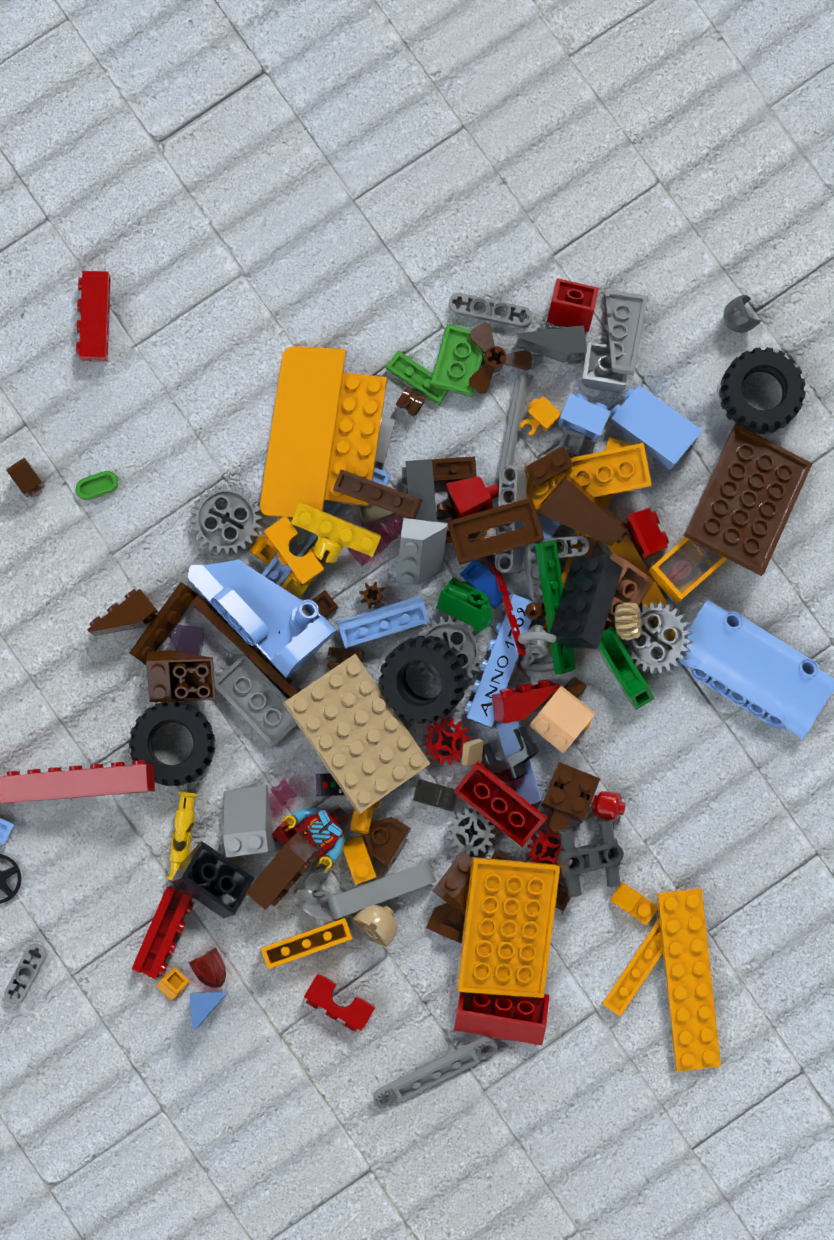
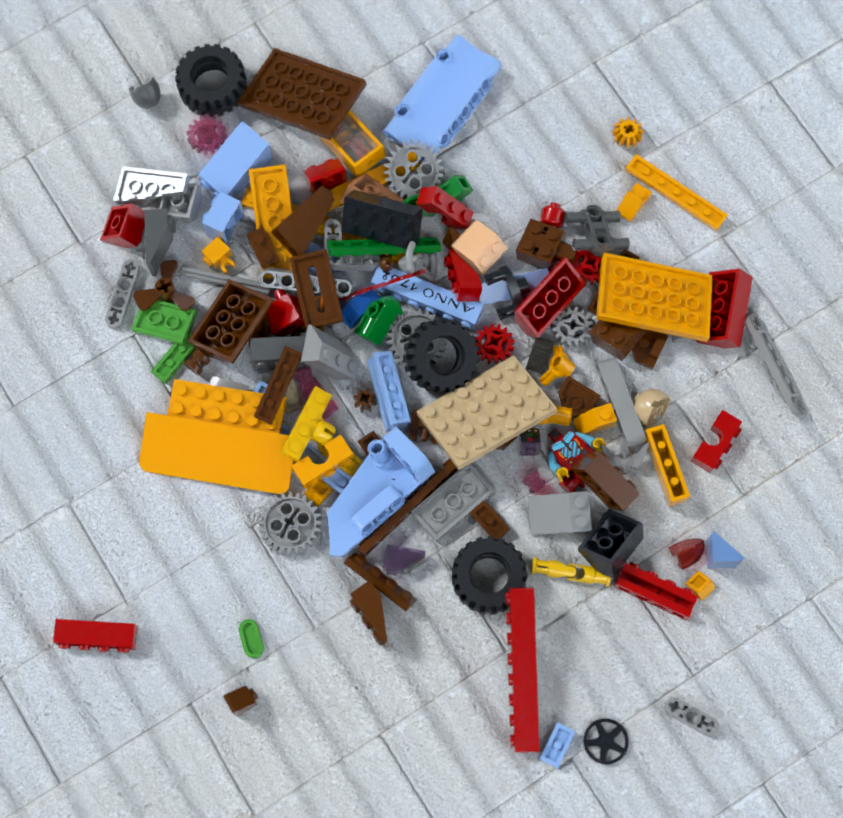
camera: 85 degrees left, 10 degrees down
(179, 677) = (430, 565): reddish brown slope -> none
(237, 743) = (489, 520): none -> reddish brown plate
(421, 817) = (559, 366): none -> light orange axle
(454, 436) = (230, 322): none -> reddish brown slope
(472, 752) = (504, 321): tan tile -> none
(606, 676) = (438, 201): none -> red arch
(628, 621) = (398, 188): tan gear -> none
(685, 388) = (211, 139): none -> clear pink gear
(688, 979) = (697, 161): light orange plate -> none
(729, 892) = (620, 132): none -> light orange gear

